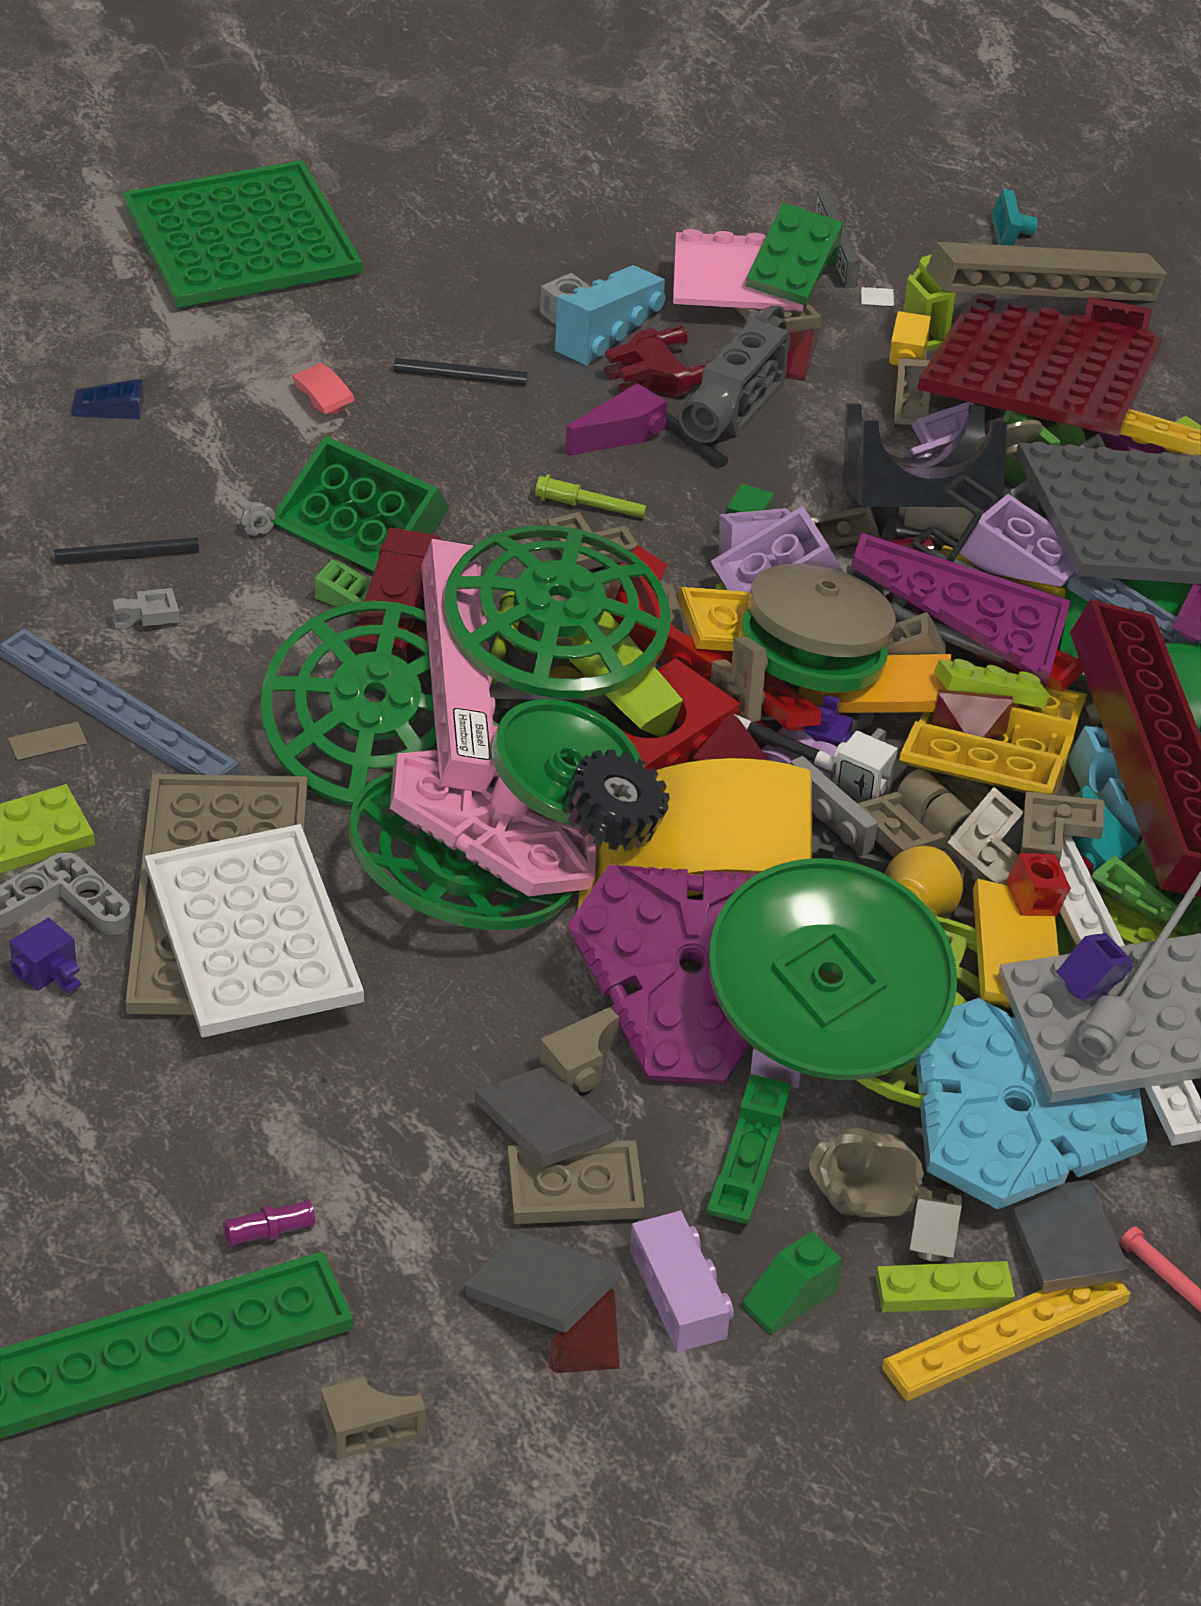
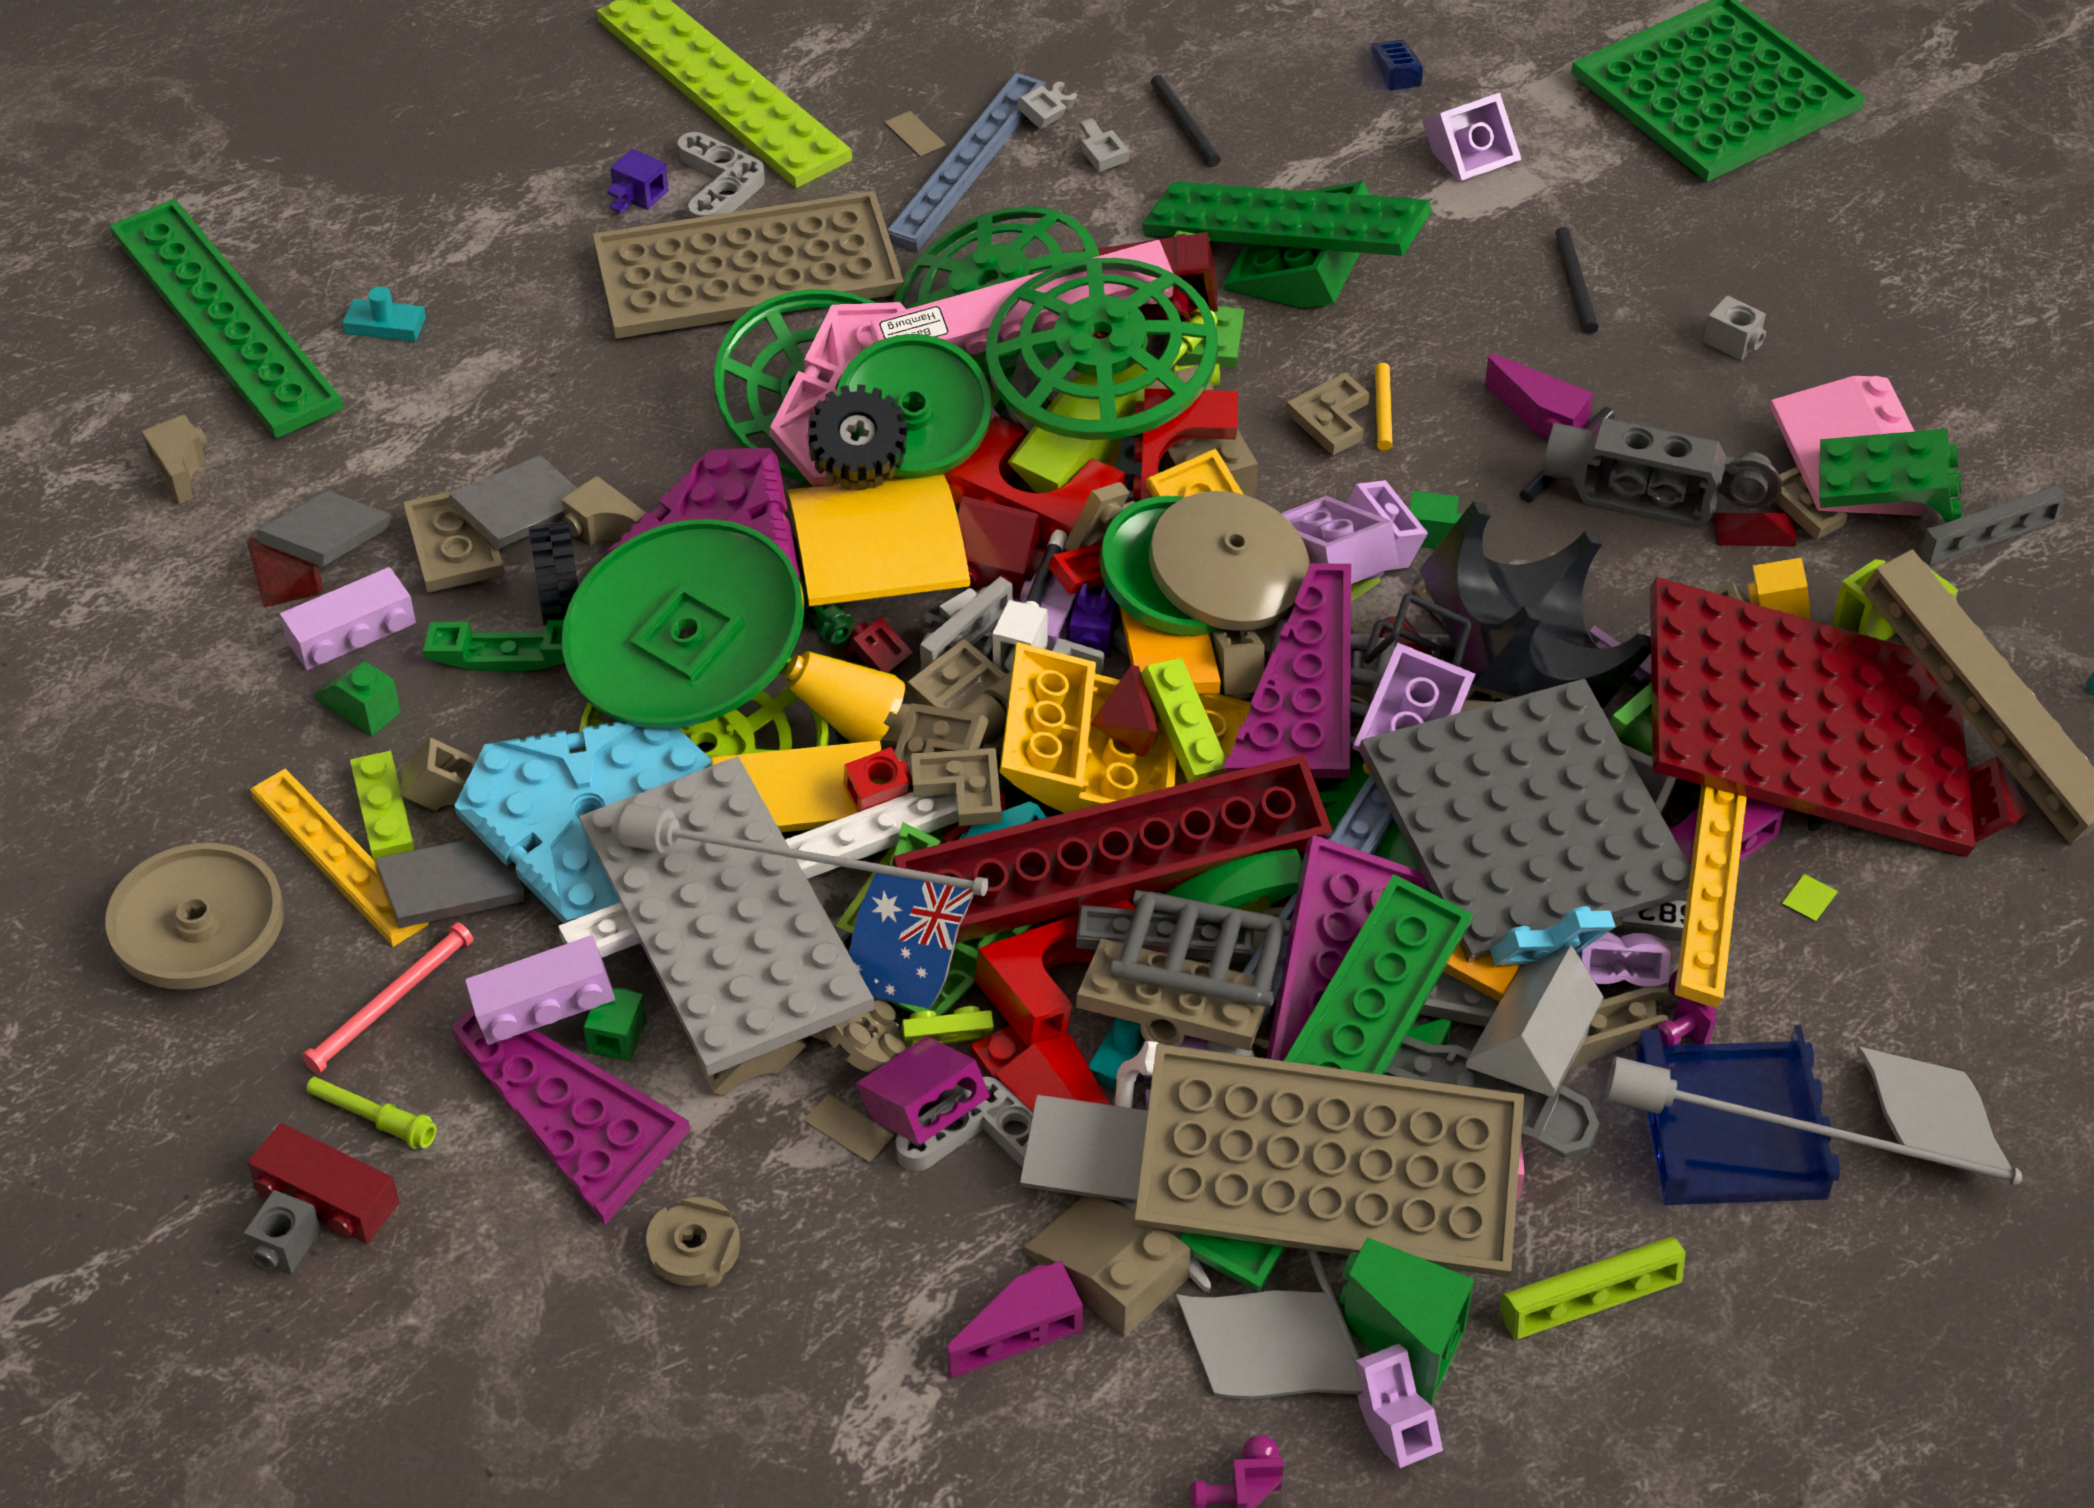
camera: 80 degrees right, 5 degrees up
(64, 634) = (1045, 106): none -> light grey plate
(182, 1210) = (382, 318): none -> teal tile
(249, 377) = (1473, 137): none -> lavender slope
(253, 930) = (682, 278): white plate -> none
(254, 511) = (1260, 179): light grey plate -> none
(269, 1223) = (373, 366): magenta pin -> none
(324, 388) = (1482, 188): coral slope -> none
(346, 498) = (1289, 217): none -> green plate
(572, 494) = (1406, 370): lime pin -> none
(589, 515) = (1383, 406): none -> yellow bar
(606, 312) = (1722, 356): medium azure wedge -> none
(652, 364) = (1665, 403): dark red connector -> none
(684, 1104) = (553, 568): none -> black bush
(867, 1173) = (490, 719): dark tan hair -> none
(1017, 432) = (1596, 677): dark tan dish -> none
(1094, 967) = (711, 802): dark purple brick -> none
(1098, 1440) = (194, 916): none -> dark tan dish

